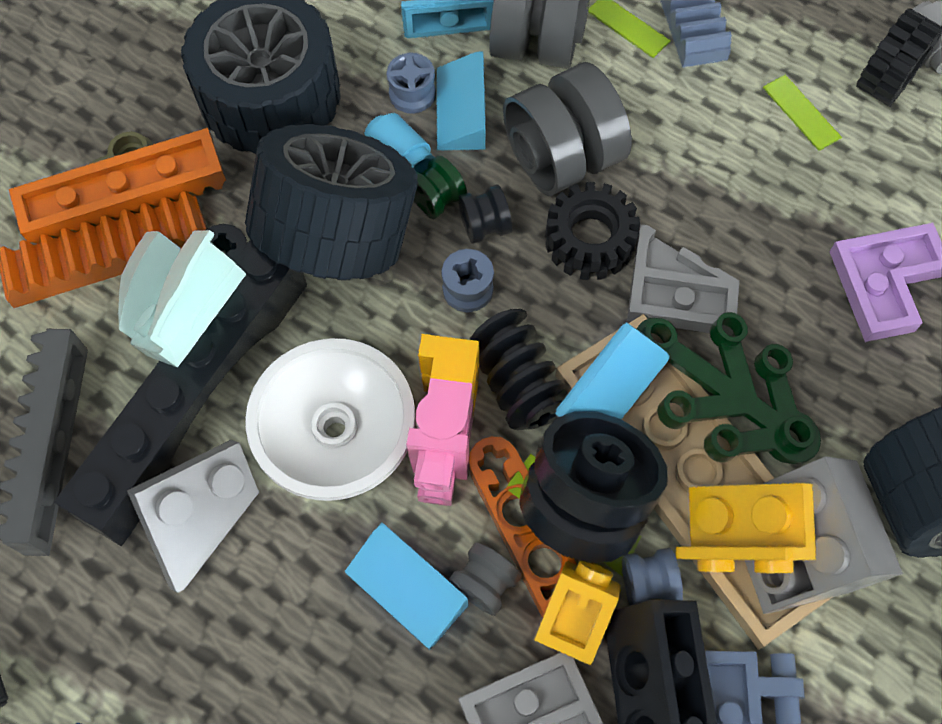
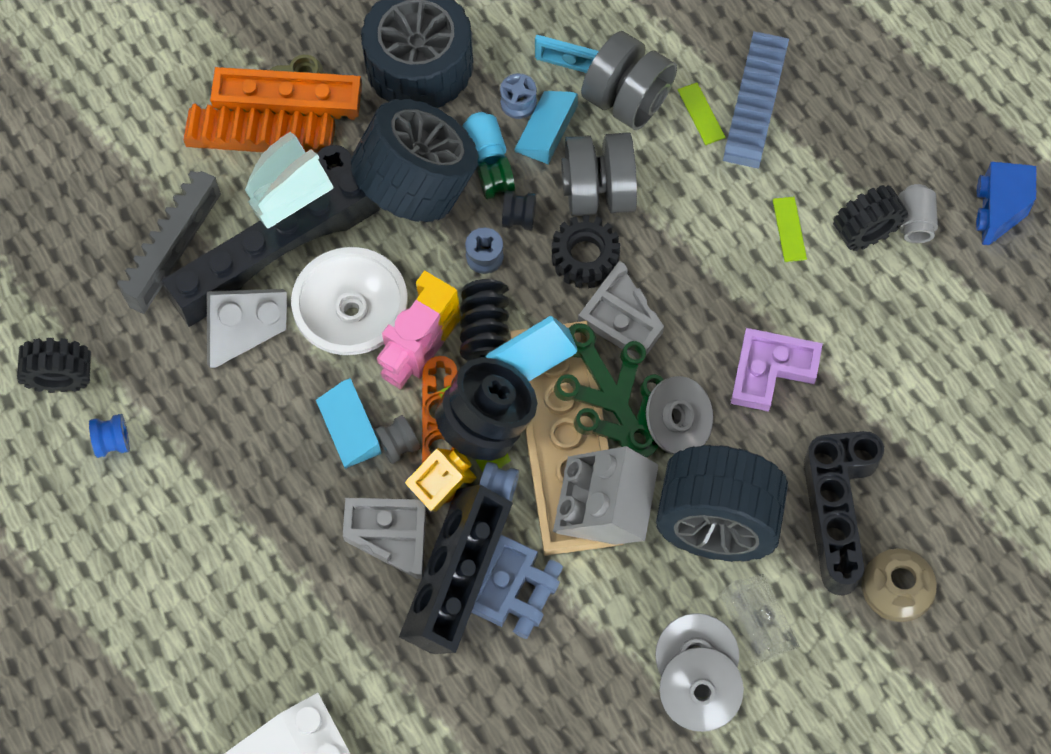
camera: 25 degrees right, 0 degrees up
(751, 523) = (564, 470): yellow bracket -> none
(824, 384) = (691, 414): none -> light grey dish

